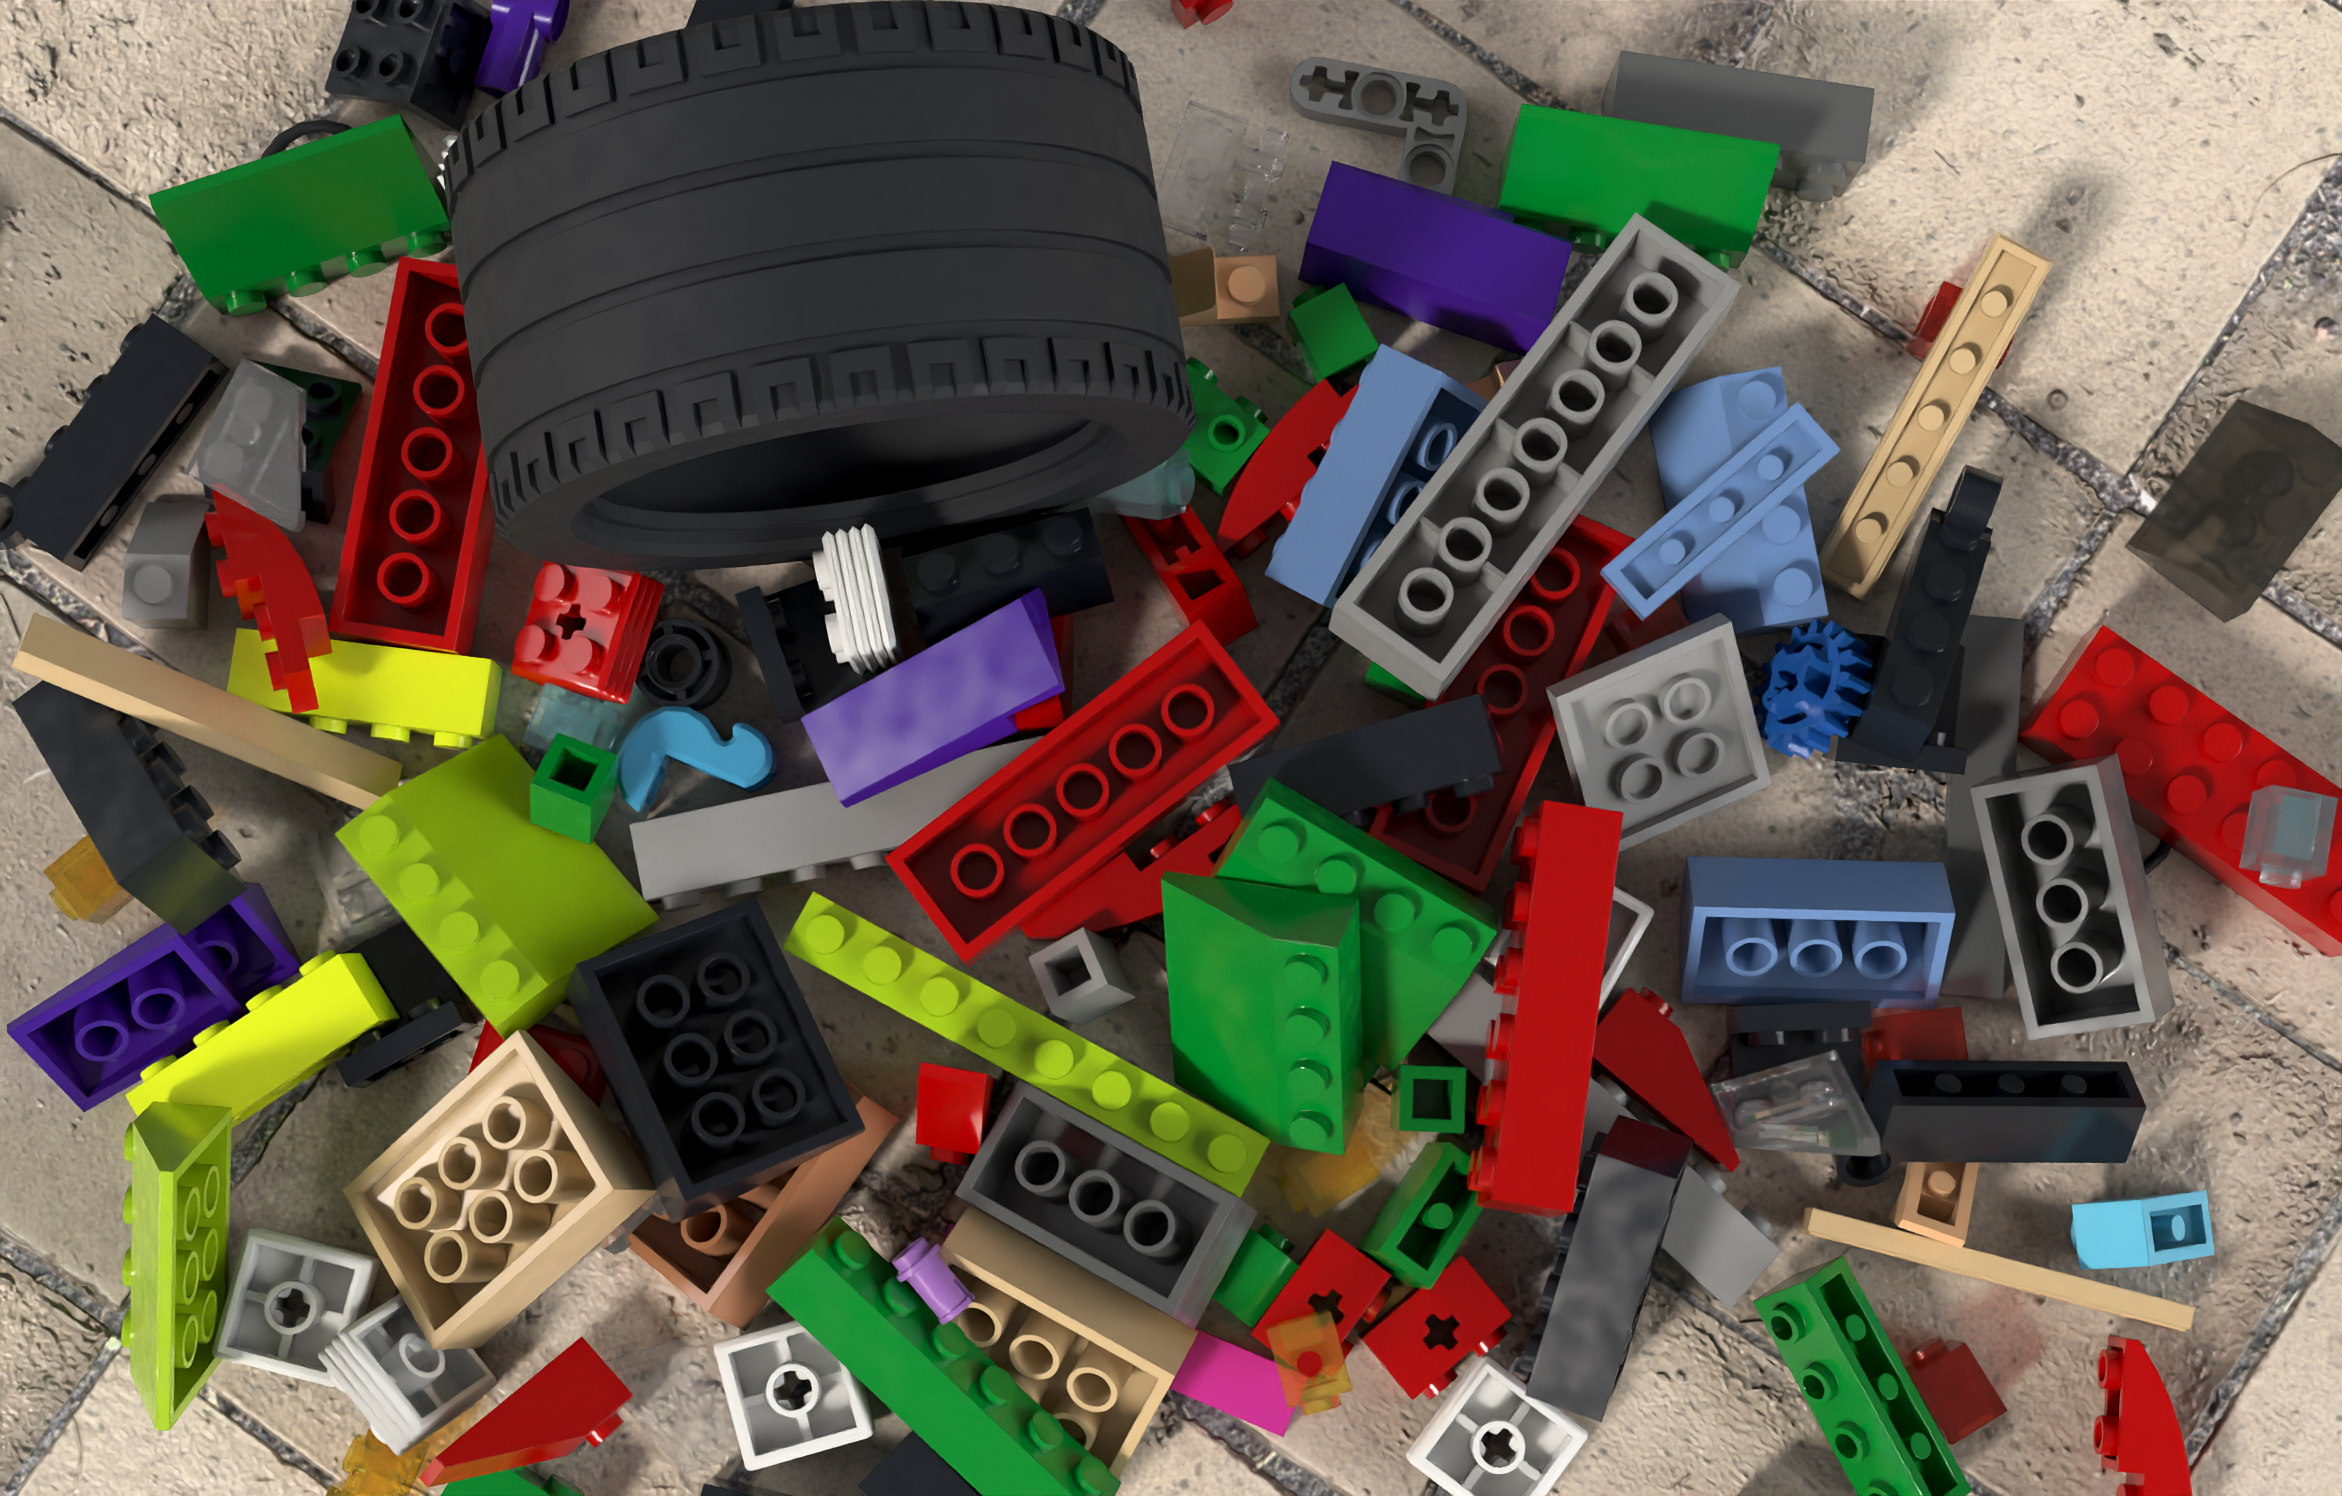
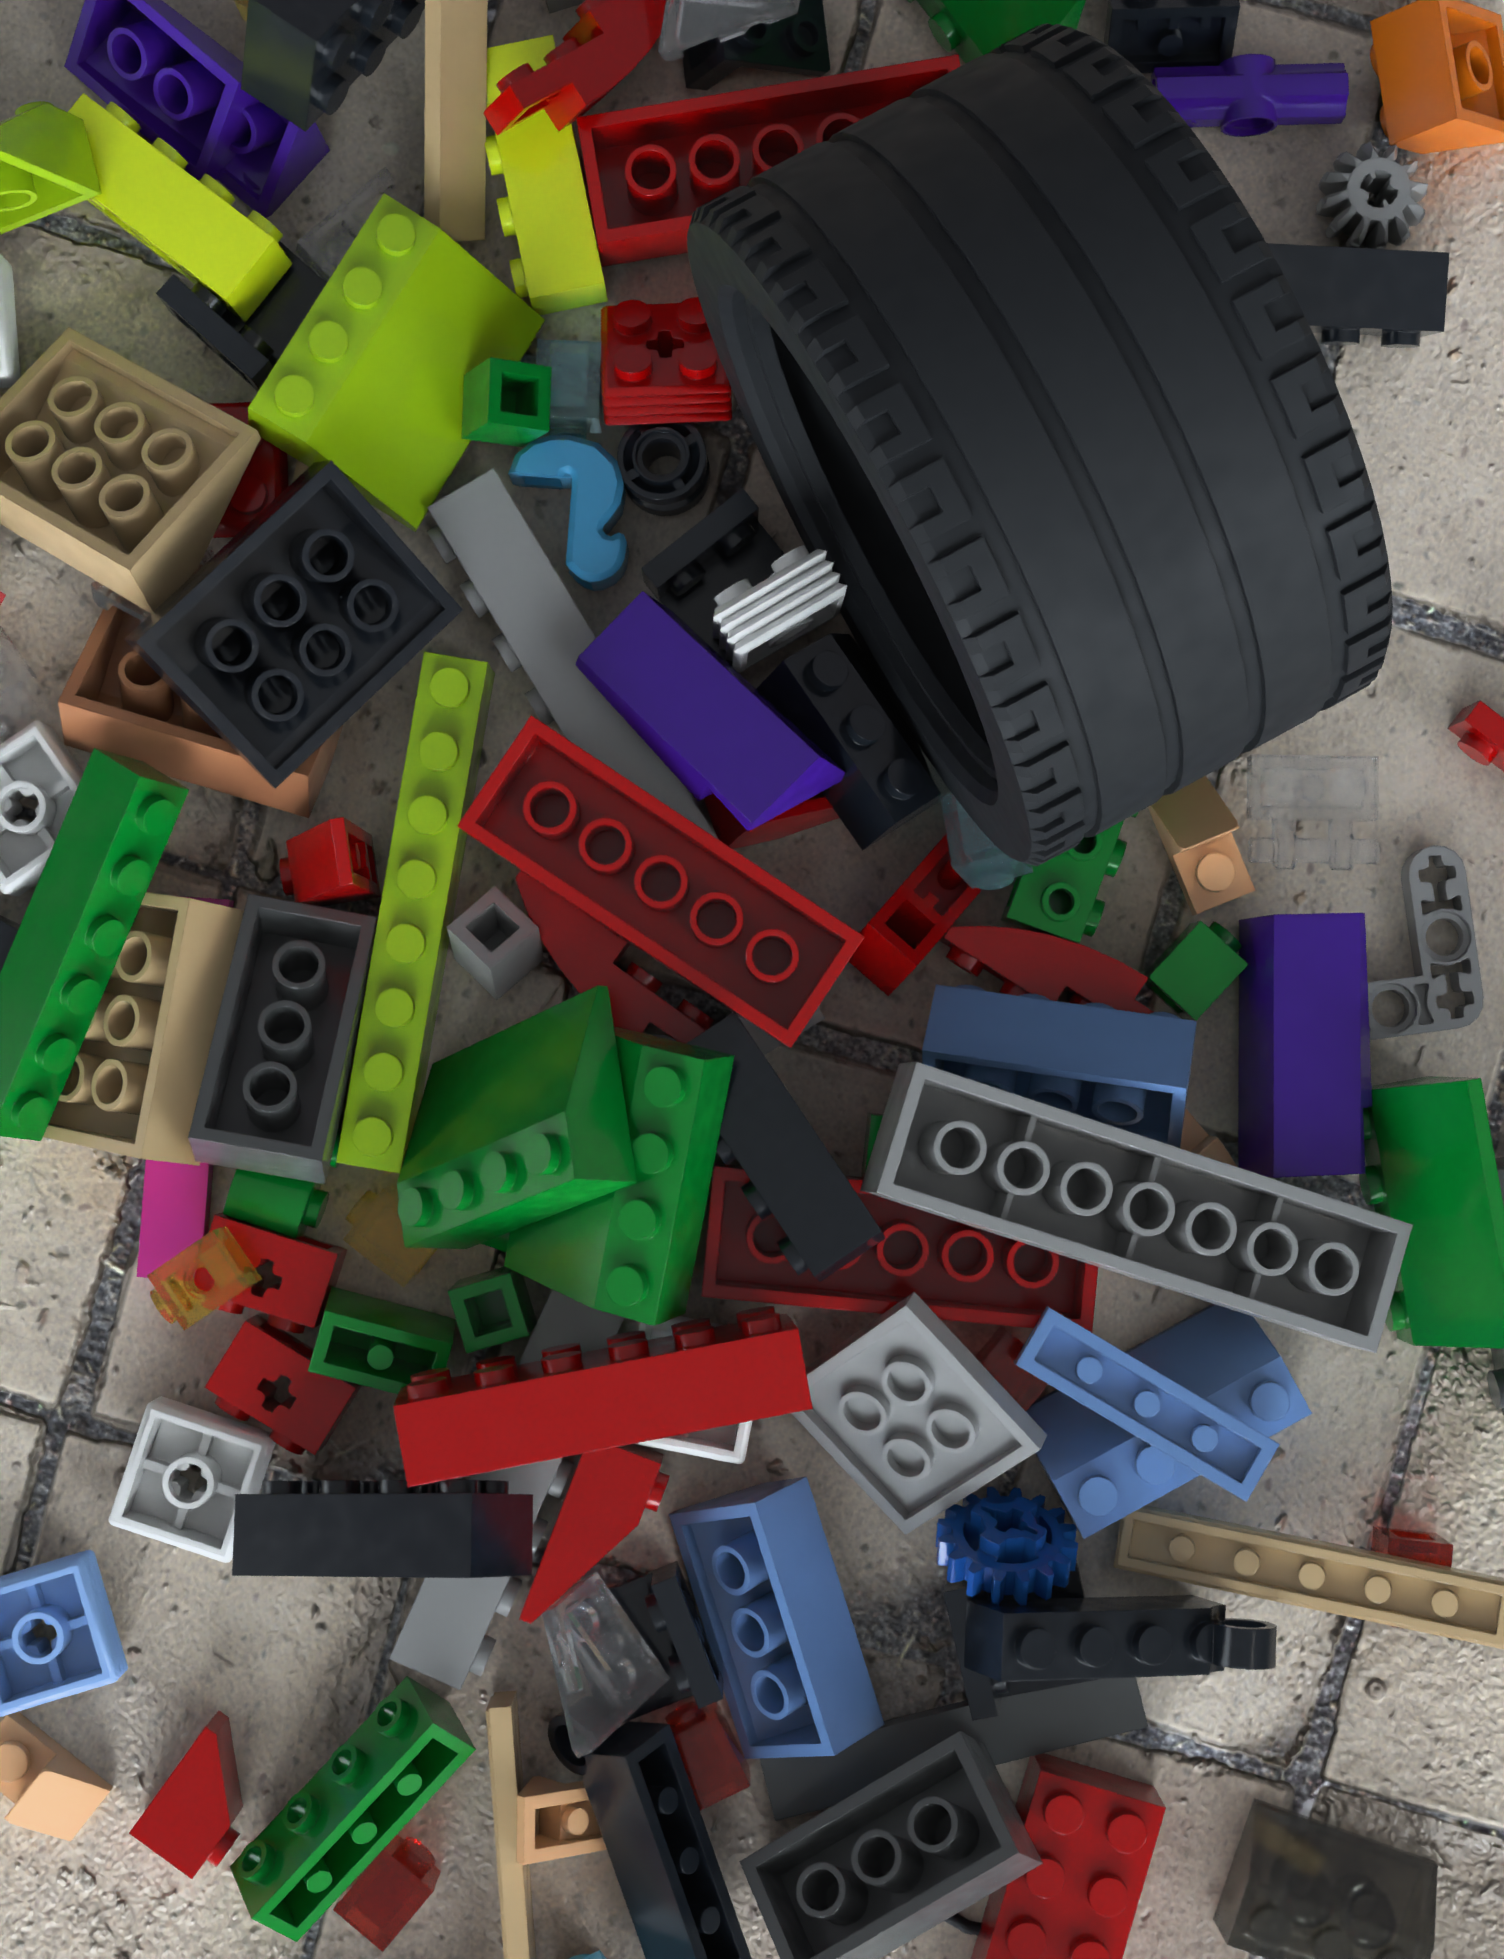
camera: 65 degrees right, 5 degrees up
(932, 1279) = (155, 900): medium lavender pin -> none

